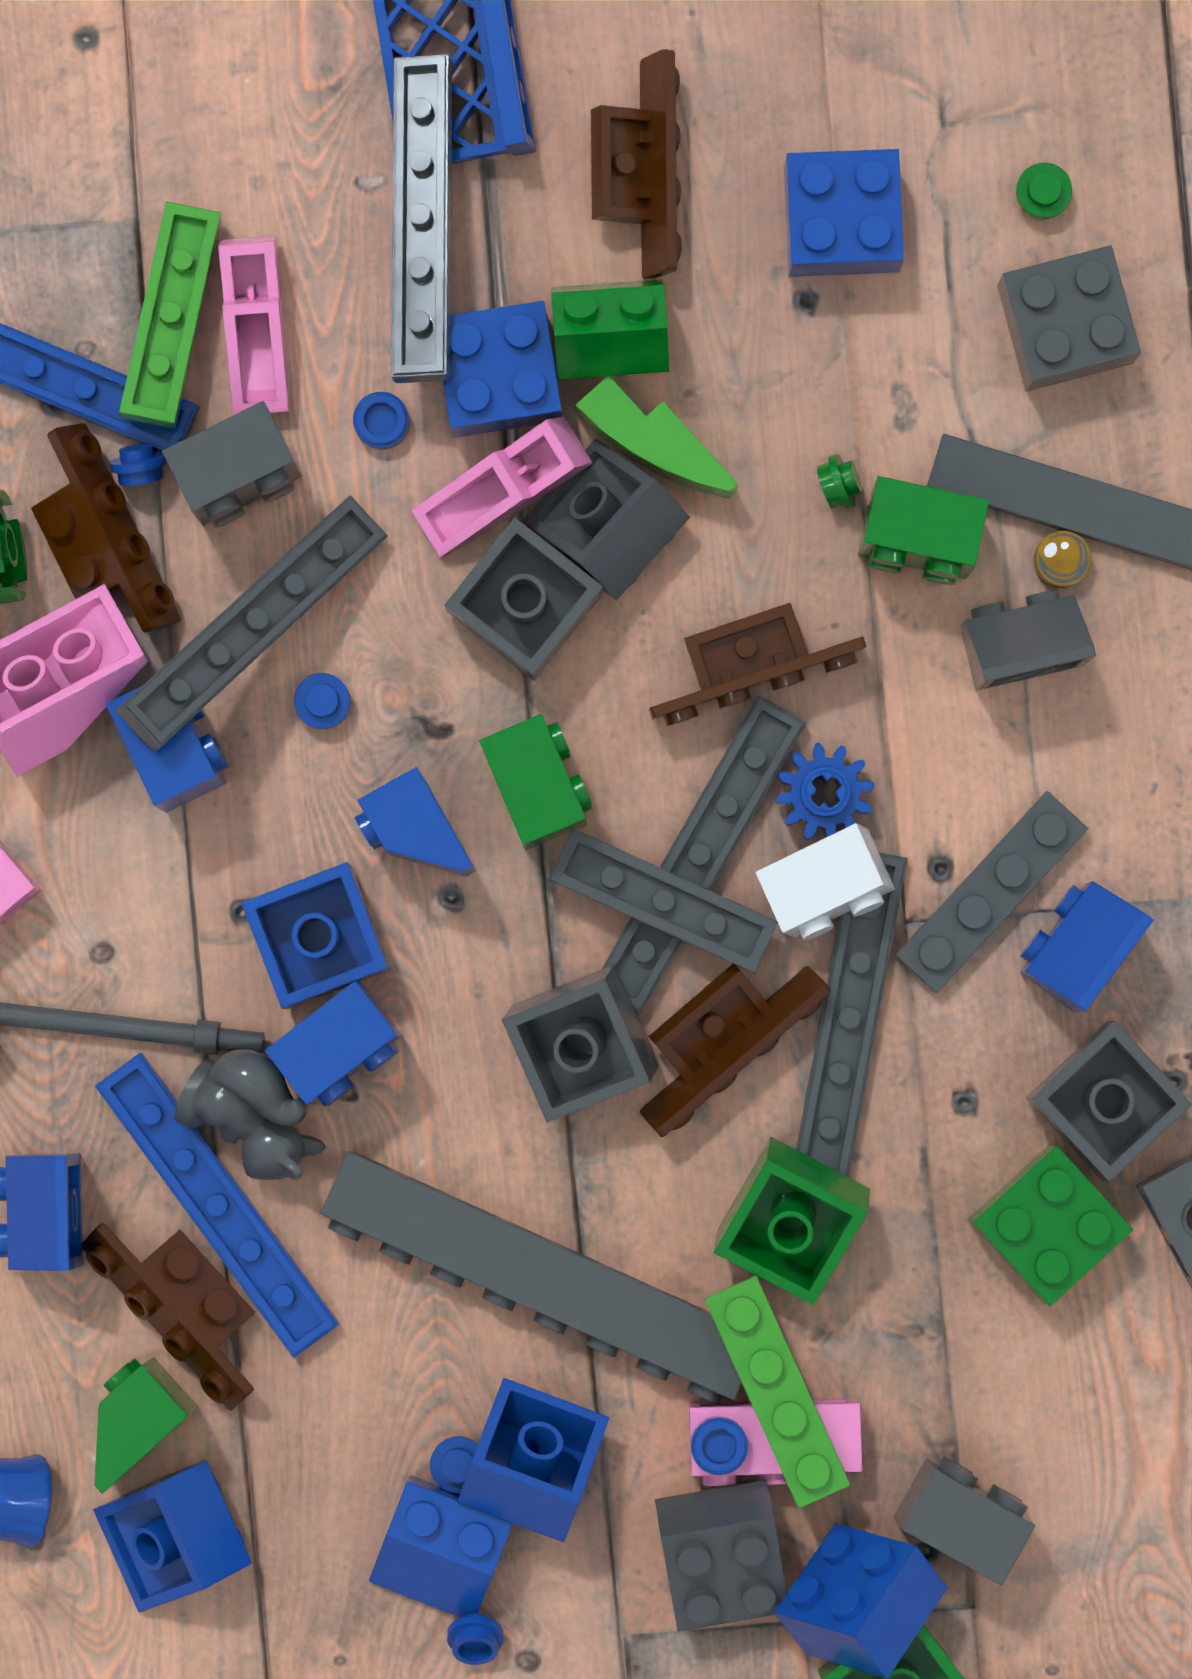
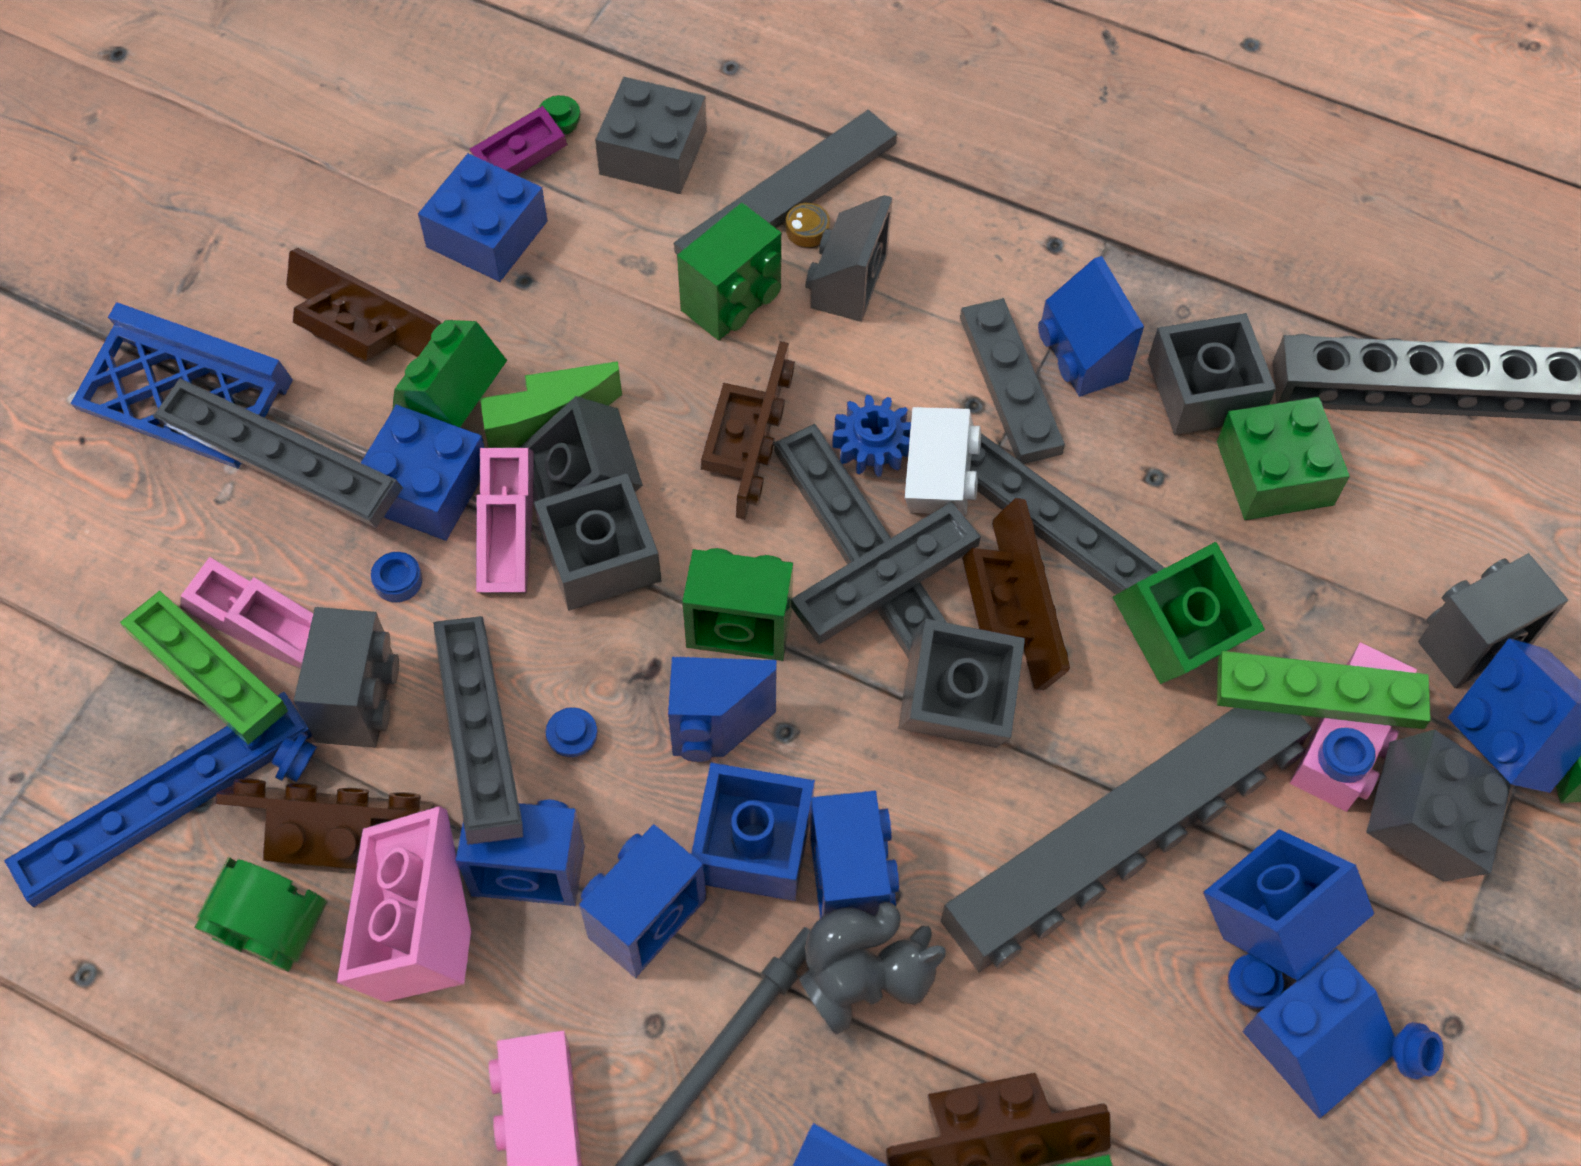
camera: 65 degrees left, 25 degrees down
(187, 880) = (642, 899): none -> blue brick
(218, 1206) = (924, 1053): blue tile -> none
(839, 482) = (661, 315): green plate -> none
(963, 182) = (522, 143): none -> magenta plate

